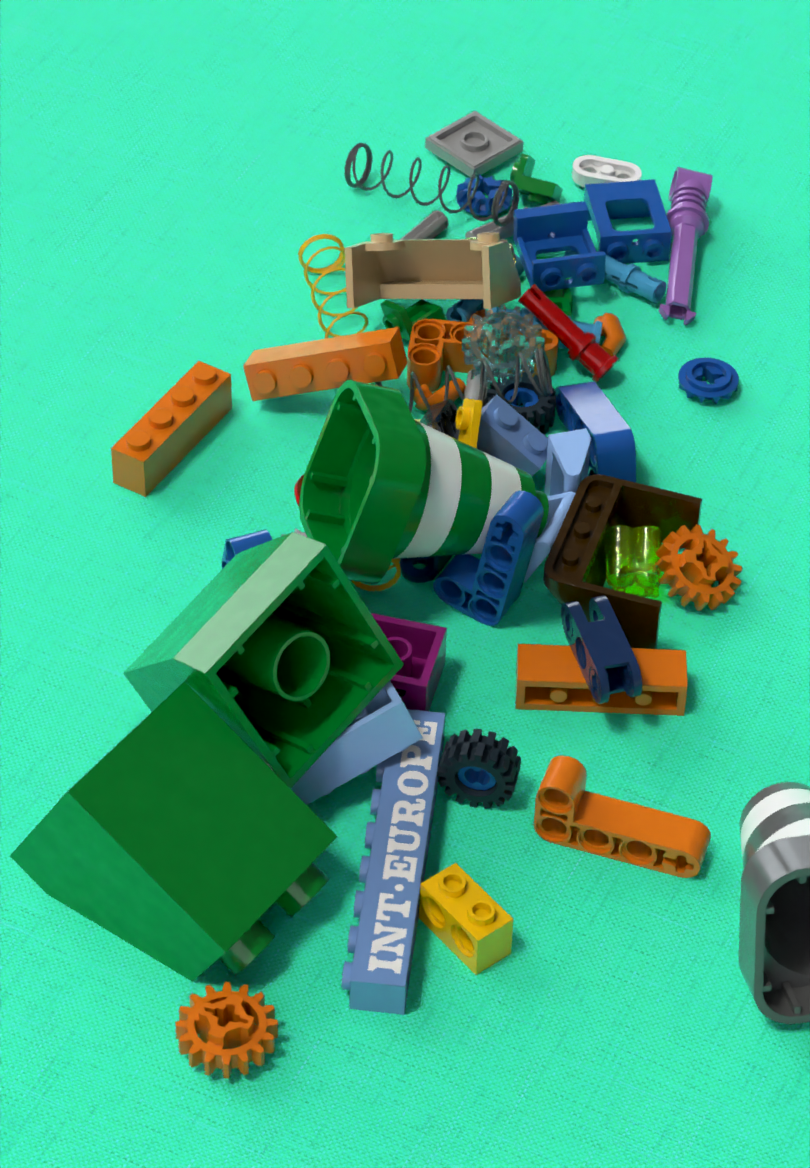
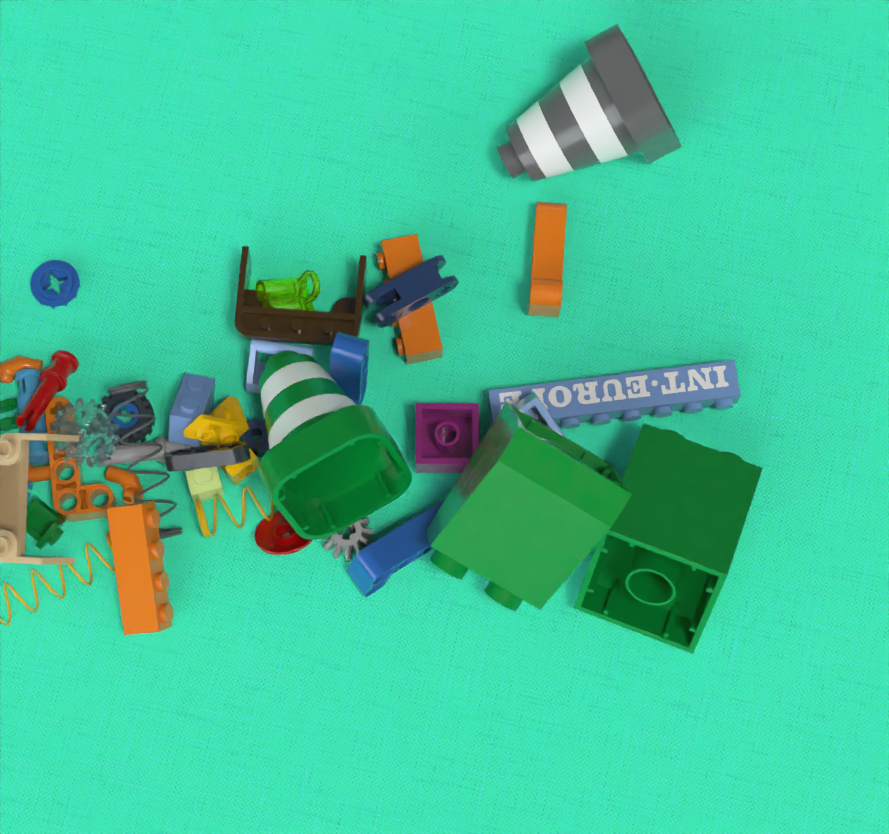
camera: 105 degrees left, 30 degrees up
(171, 428) = (226, 676): orange brick -> none
(226, 1029) = (801, 468): orange gear -> none
(465, 918) = (657, 339): yellow brick -> none
(479, 768) = (531, 356): black bush -> none
(567, 461) = (221, 354): light blue tile -> none
(611, 437) = (154, 347): blue beam -> none
(698, 567) = (283, 250): orange gear -> none

